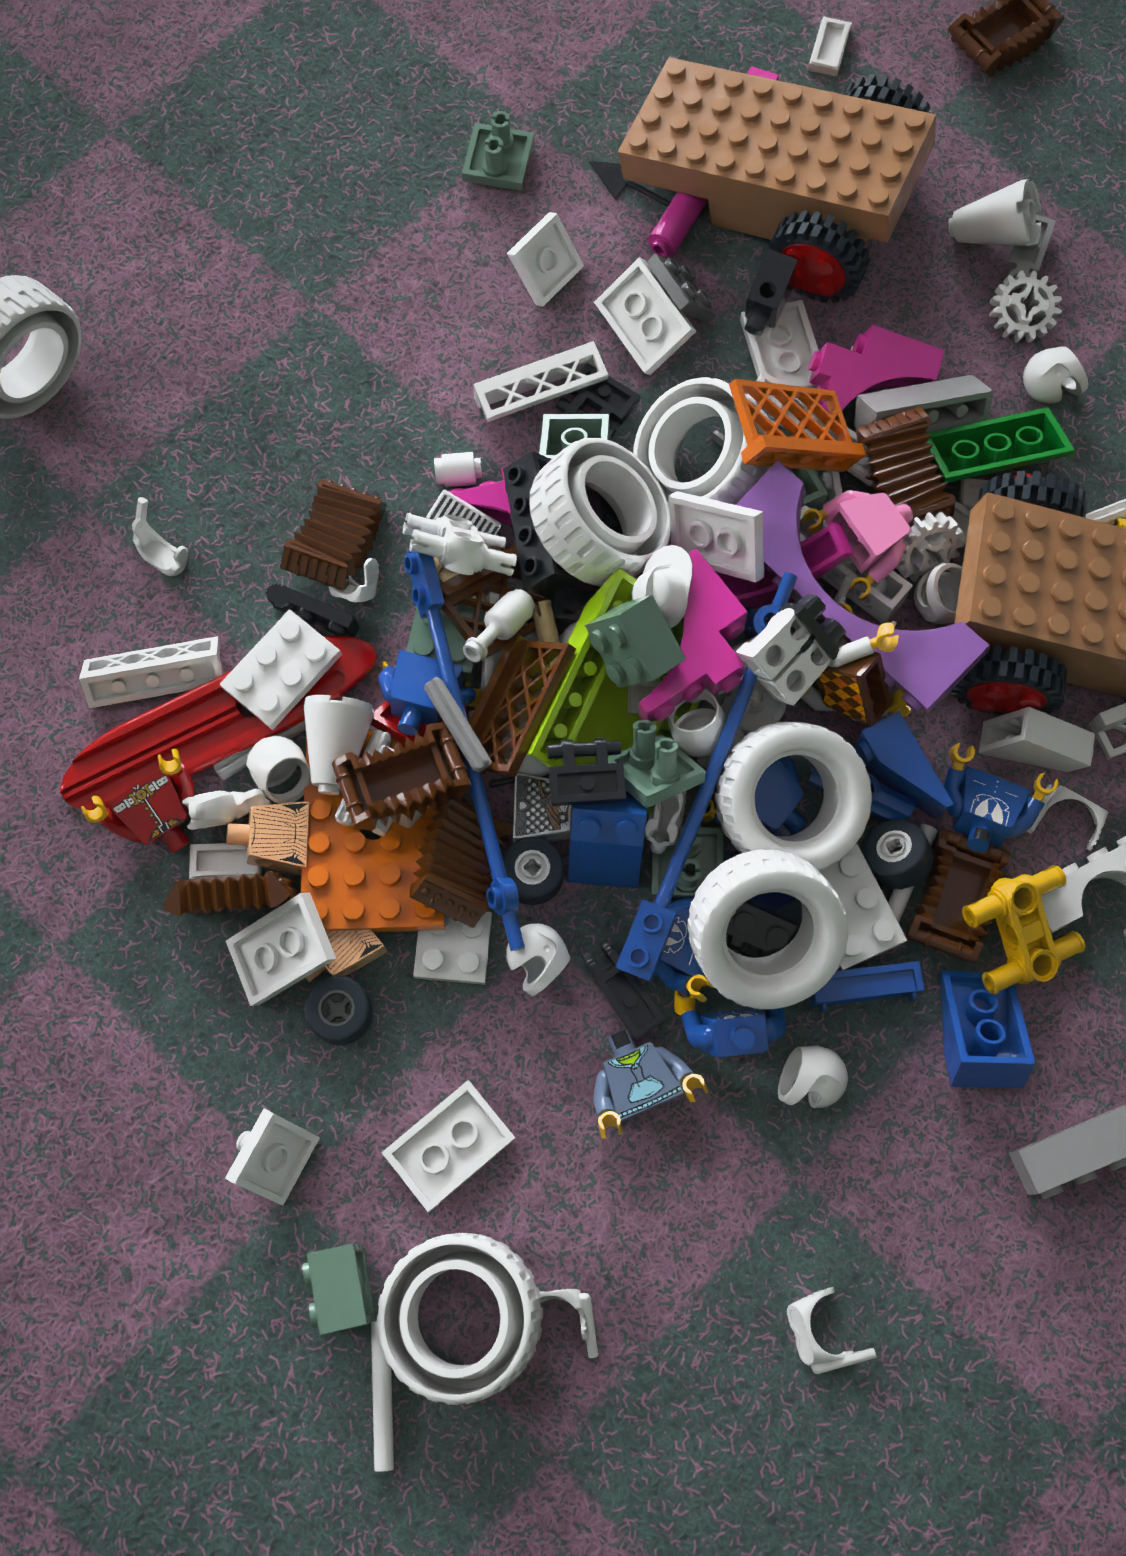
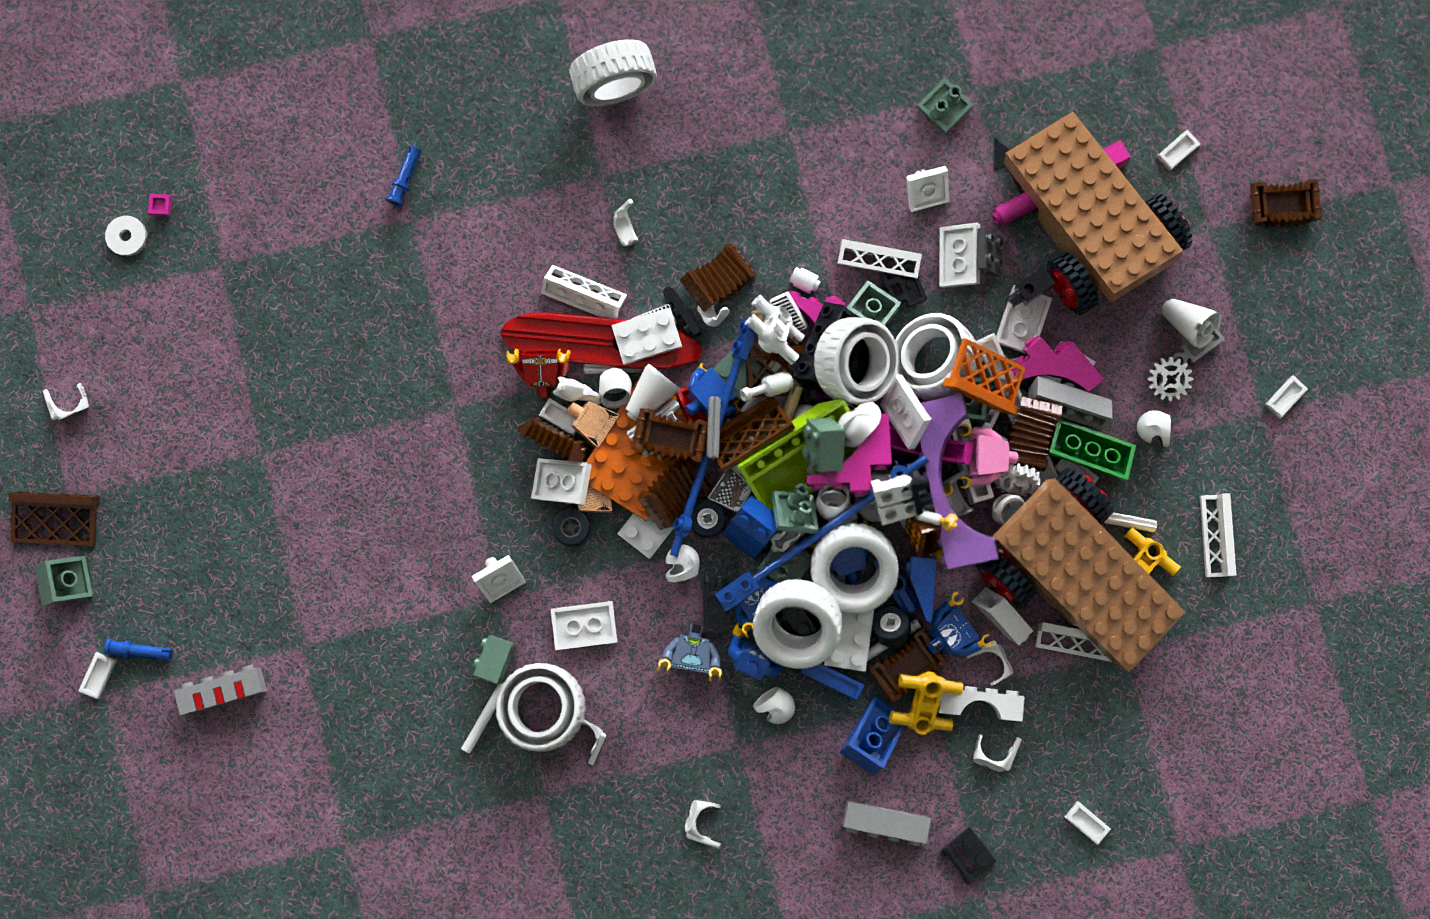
camera: 25 degrees right, 10 degrees up
(586, 783) = (756, 500): black plate -> none

